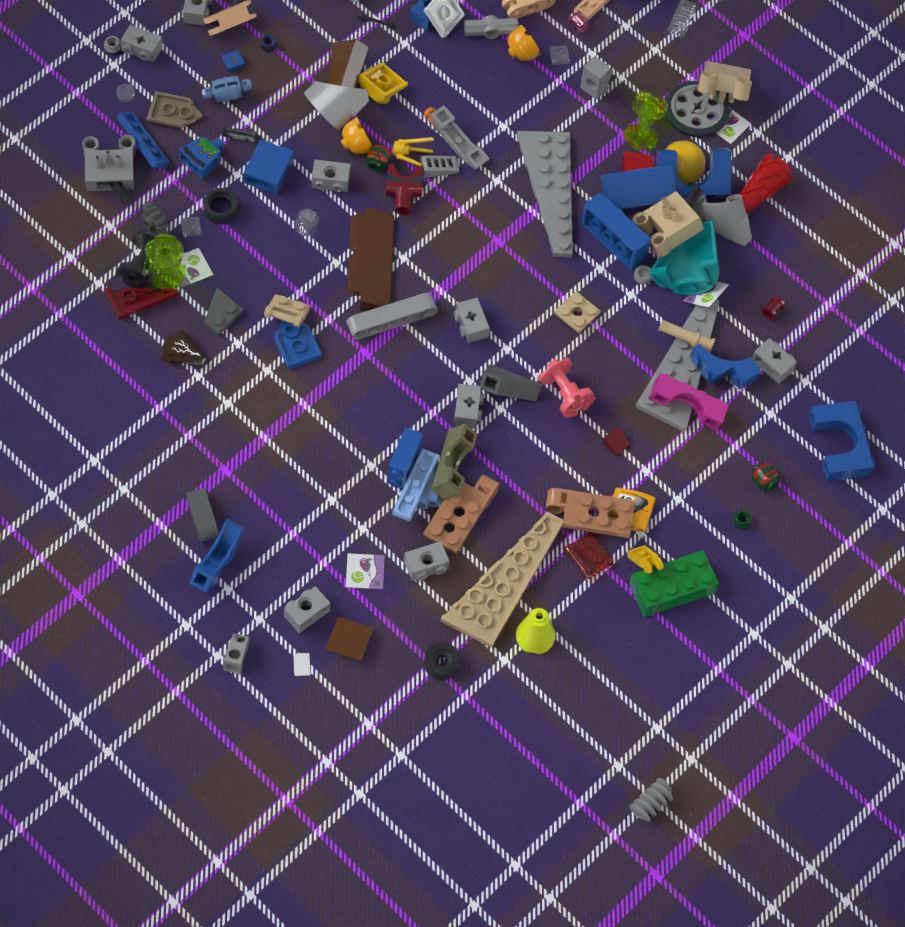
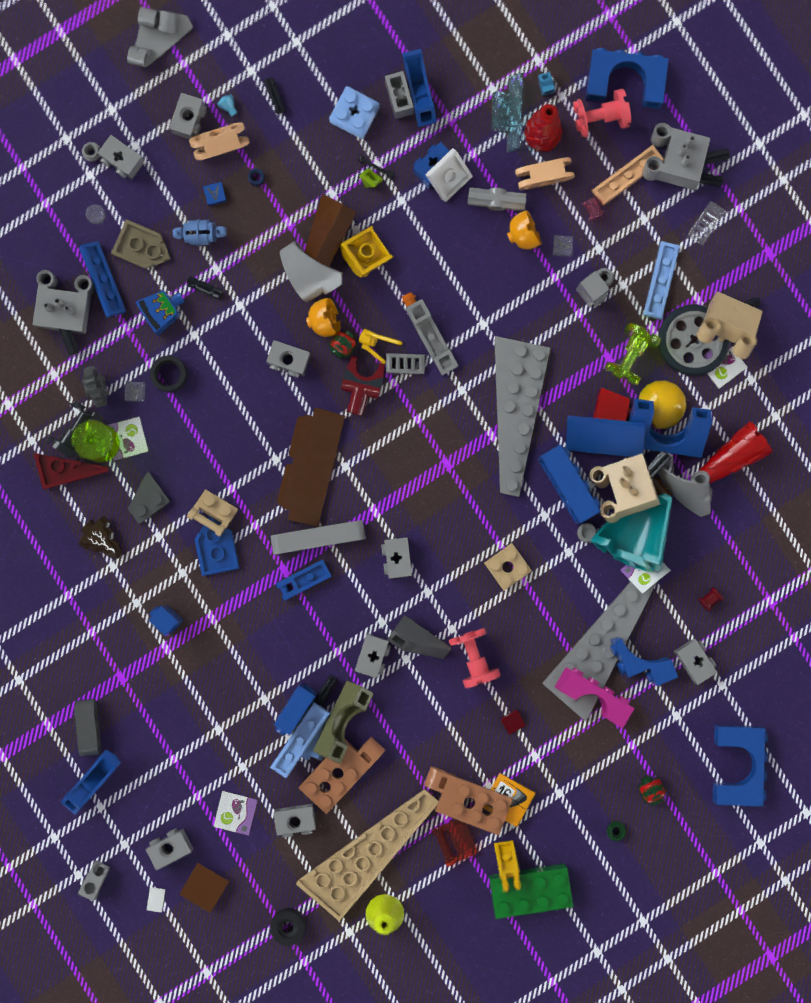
camera: 20 degrees right, 25 degrees up
(262, 402) = (165, 619): none -> blue brick
(268, 166) = (226, 335): blue brick -> none
(306, 222) = (252, 411): clear head -> none
(372, 29) = (370, 178): none -> lime slope
(386, 354) = (304, 579): none -> blue plate
(431, 441) = (325, 691): none -> black axle
(655, 66) = (661, 280): none -> light blue tile
(688, 336) = (619, 626): tan pin -> none

